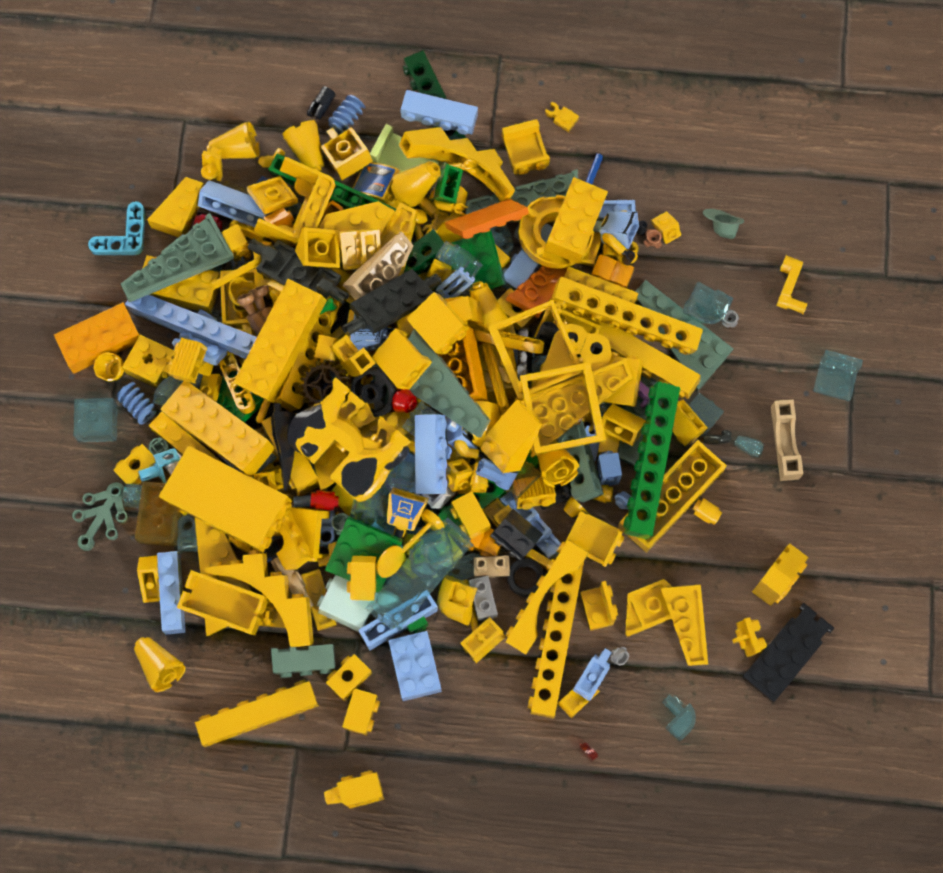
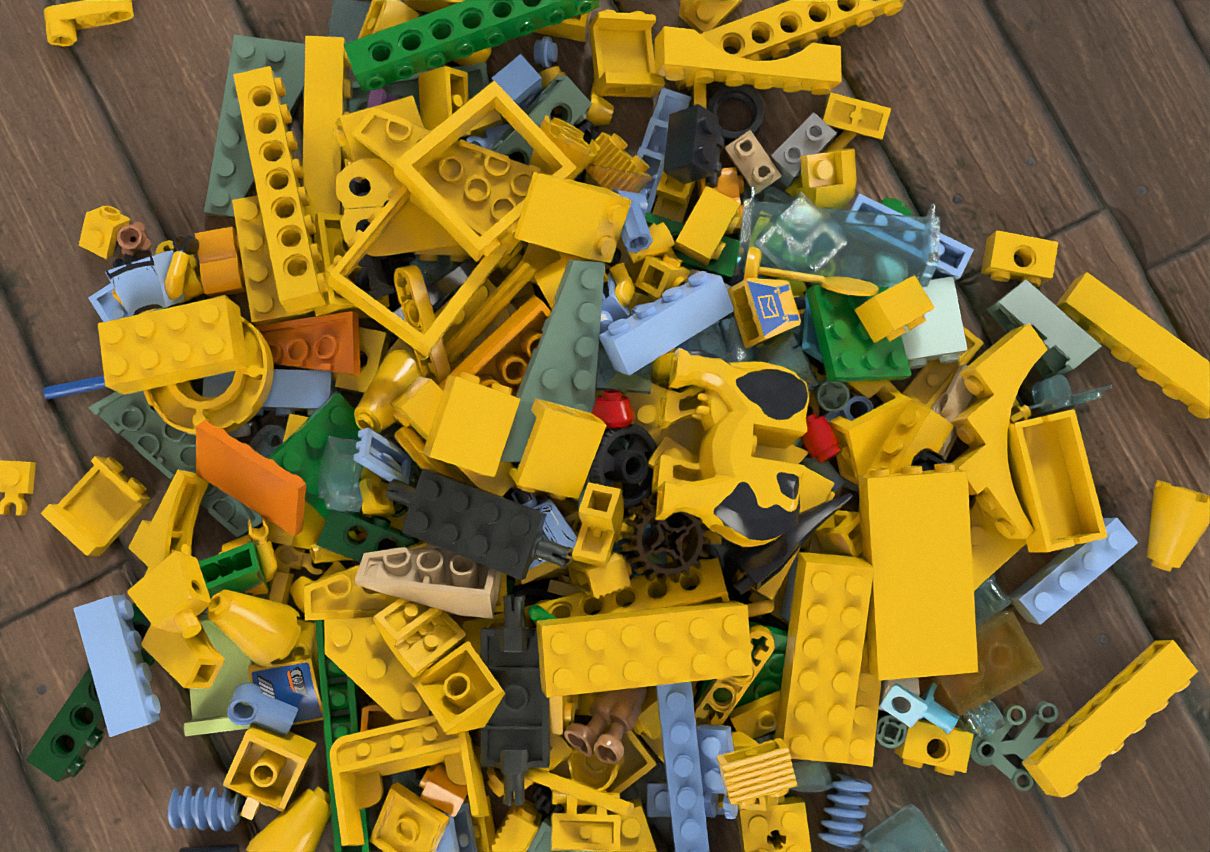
camera: 125 degrees left, 10 degrees up
(88, 559) = (1110, 718): none -> yellow brick
(149, 578) = (1073, 618): yellow slope -> none
(215, 269) = (583, 831): none -> yellow plate
(263, 640) = (1056, 393): none -> clear light blue hinge
(356, 791) = (1160, 146): yellow hinge -> none
(360, 712) = (1053, 213): yellow brick -> none
(378, 160) = (262, 709): none -> medium blue piece
(415, 666) = (951, 177): light blue brick -> none
(451, 151) = (173, 595): none -> yellow torso
(707, 305) = (191, 101): clear light blue brick -> none
(723, 223) = (48, 153): sand green piece -> none
(734, 318) = (190, 58): light grey plate -> none

